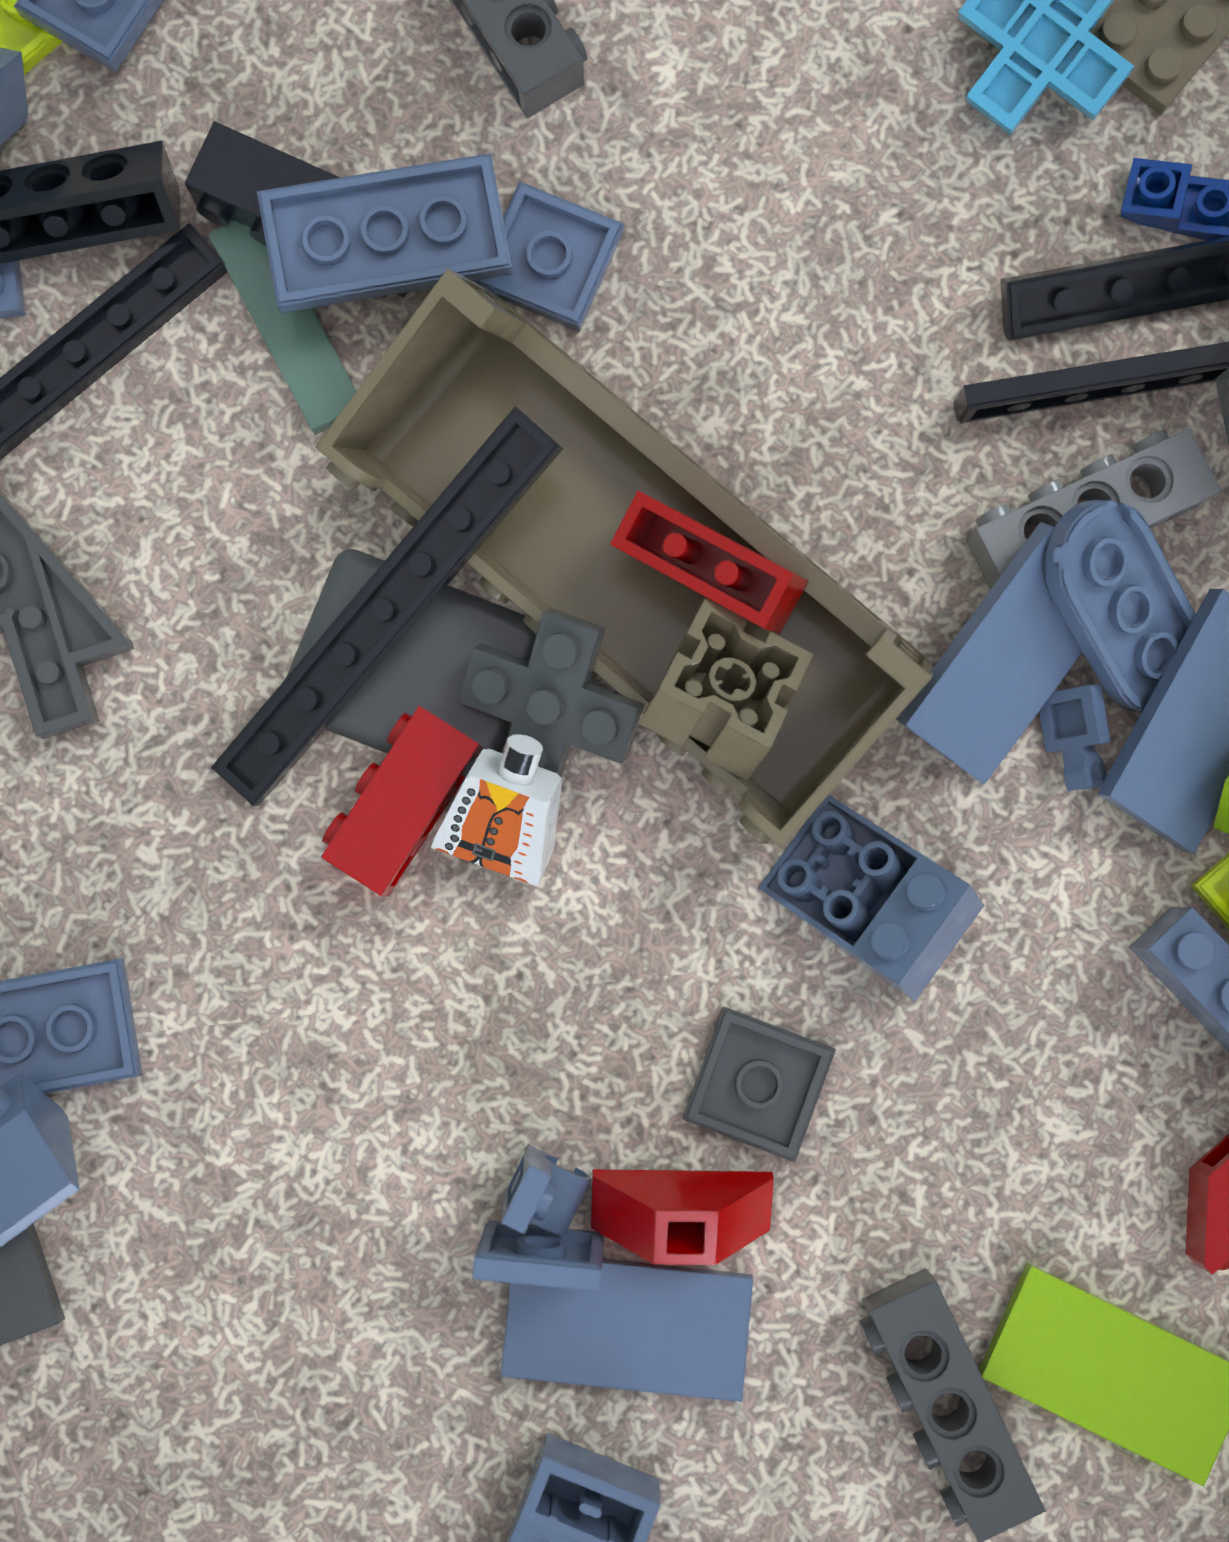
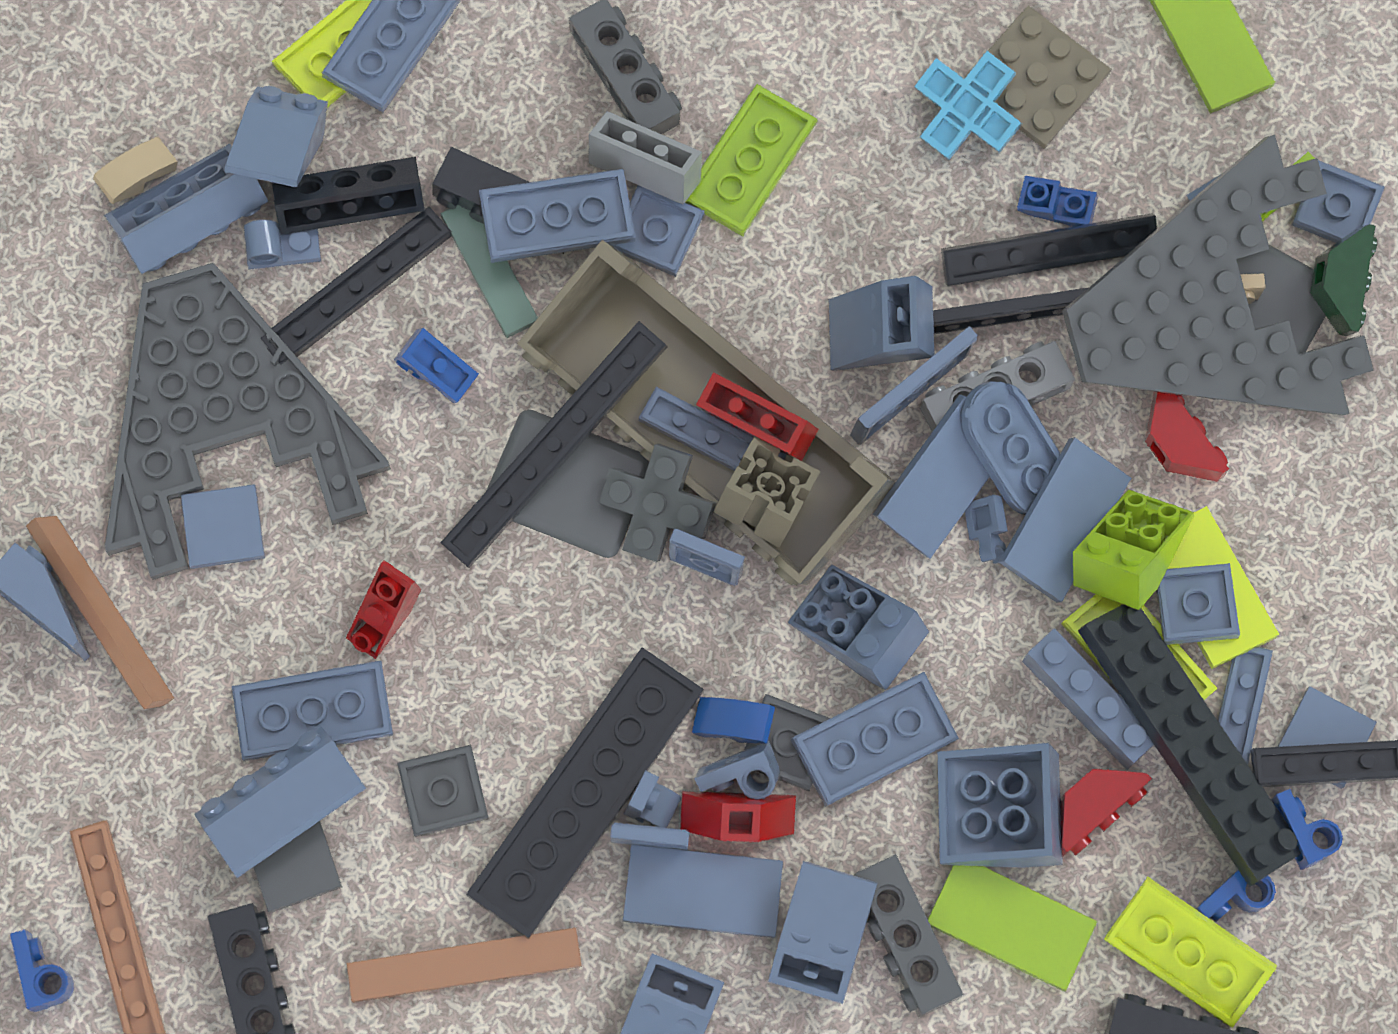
camera: 10 degrees left, 10 degrees down
(117, 879) = (383, 609): none -> red slope
(200, 481) = (436, 364): none -> blue plate
(218, 1166) = (442, 790): none -> dark grey tile
(253, 1446) = (463, 965): none -> nougat tile
(399, 801) = (561, 563): red brick -> none
(439, 1173) = (585, 793): none -> black plate
(505, 812) = (629, 568): torso -> none
(529, 134) = (645, 157): none -> light grey brick
(612, 579) = (696, 429): none -> sand blue tile
(627, 793) = (706, 557): none -> sand blue tile
(674, 1056) = (733, 719): none -> blue slope
(686, 1137) = (722, 772): none -> sand blue plate
(695, 139) = (751, 159): none -> lime tile
(819, 1416) = (822, 932): none -> sand blue slope
(897, 1080) = (874, 739): none -> sand blue tile
(911, 404) = (882, 324): none -> sand blue slope
(965, 504) = (913, 386): none -> sand blue tile
(1099, 1197) = (1000, 806): none -> sand blue slope

